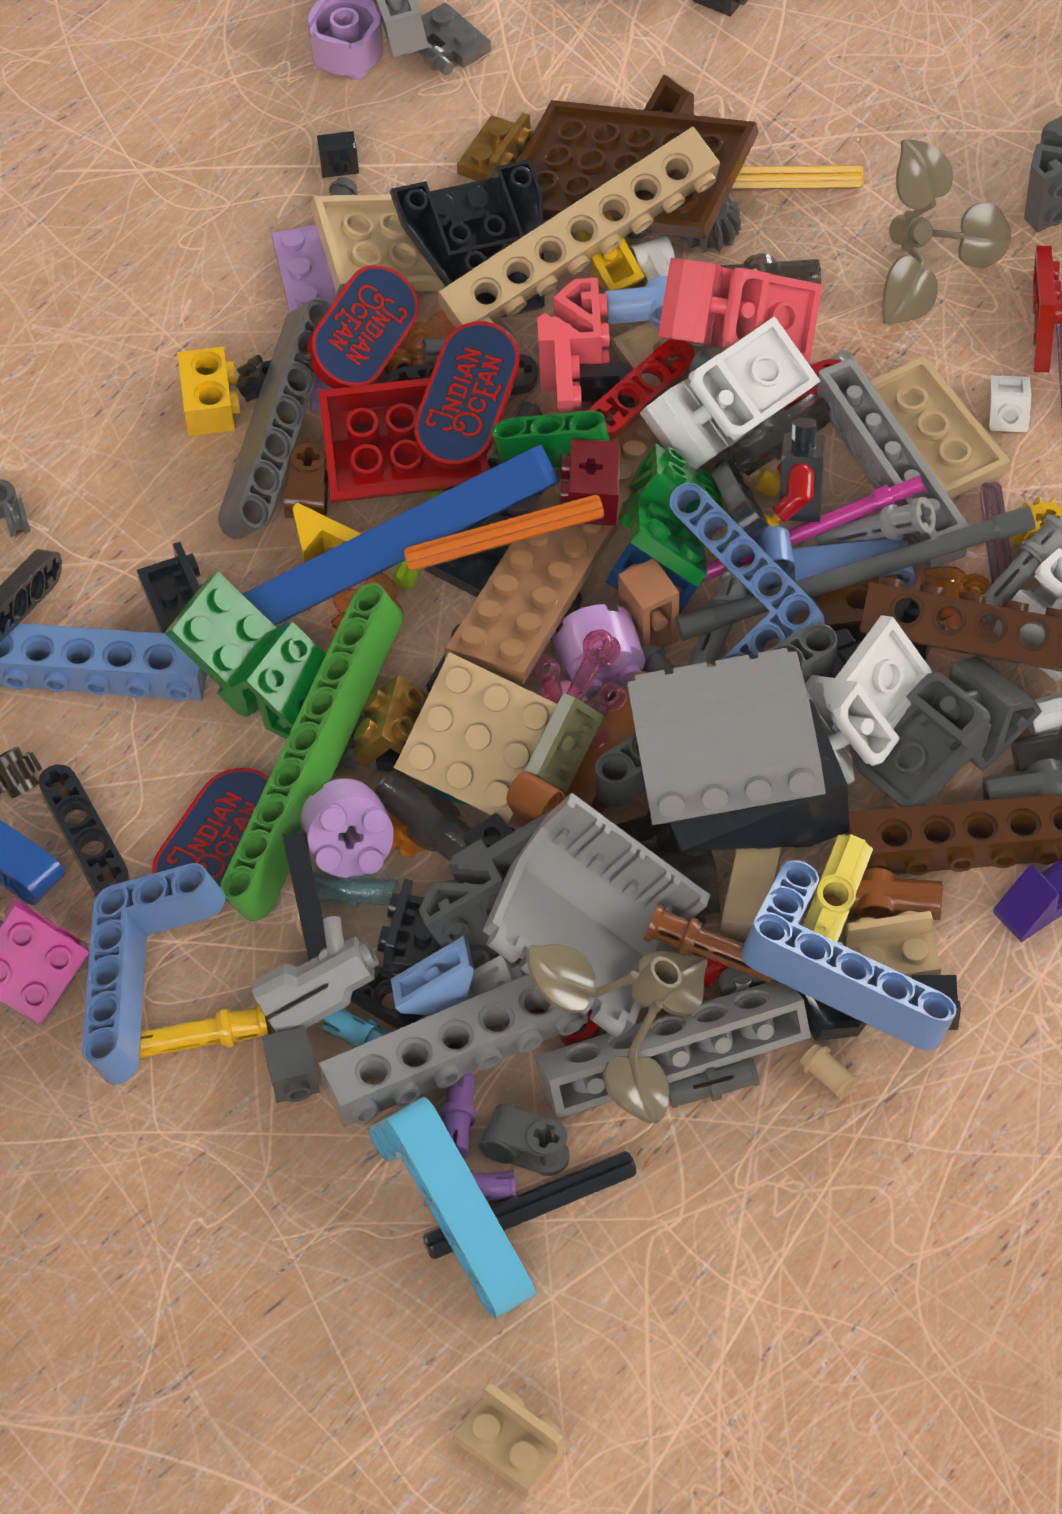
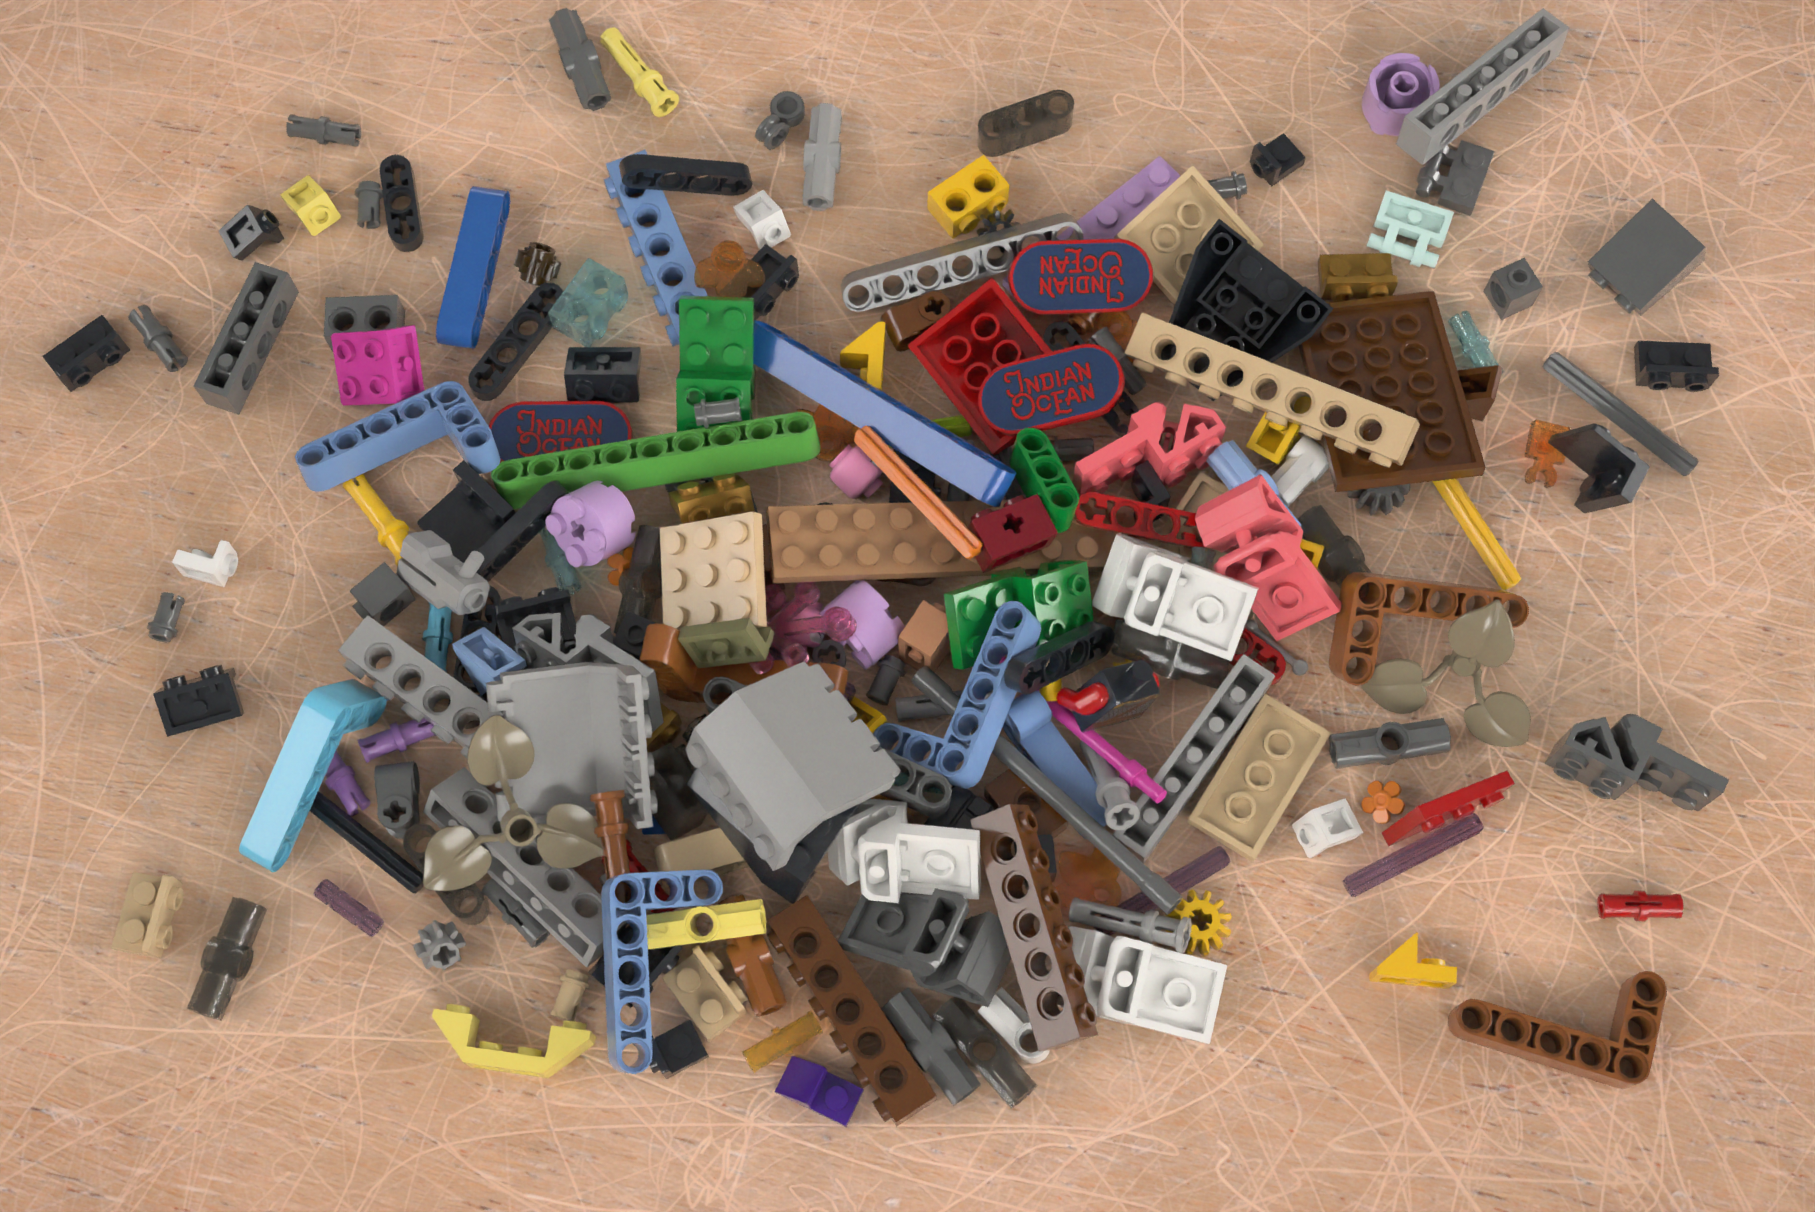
camera: 60 degrees right, 15 degrees up
(75, 488) = (822, 157): none -> light grey piece
(86, 749) = (580, 300): none -> clear light blue brick
(105, 562) = (763, 219): none -> white bracket
(146, 1224) = (208, 568): none -> white bracket
(147, 607) = (727, 276): none -> clear orange plate
(162, 315) = (1033, 110): none -> clear smoke beam
(177, 768) = (603, 374): none -> black bracket
(185, 1294) = (166, 618): none -> dark grey pin
(252, 939) = (468, 513): none -> black bracket
(295, 1289) = (198, 701): none -> black bracket
(302, 671) = (717, 412): none -> dark grey pin
(432, 599) = (855, 473): none -> bright pink head
(473, 83) = (1412, 220): none -> light aqua plate
(588, 46) = (1513, 288): none -> dark grey brick
(608, 1375) = (227, 958): none -> clear smoke piece
(613, 1125) = (452, 898): none -> clear smoke beam
(616, 1239) = (348, 907): none -> axle
(618, 97) = (1474, 344): none -> clear light blue pin
(711, 1161) = (439, 945): none -> light grey gear
(751, 35) = (1620, 414): none -> dark grey axle
(754, 94) = (1542, 452): none -> clear orange plate
(803, 53) = (1612, 468): none -> black bracket
(818, 1183) = (563, 1045): none -> light yellow slope
(823, 259) = (1414, 603): none -> dark orange beam
(959, 320) = (1412, 738): none -> dark grey piece
(977, 907) = (782, 1042): none -> clear yellow pin
(1008, 351) = (1383, 801): none -> orange plant

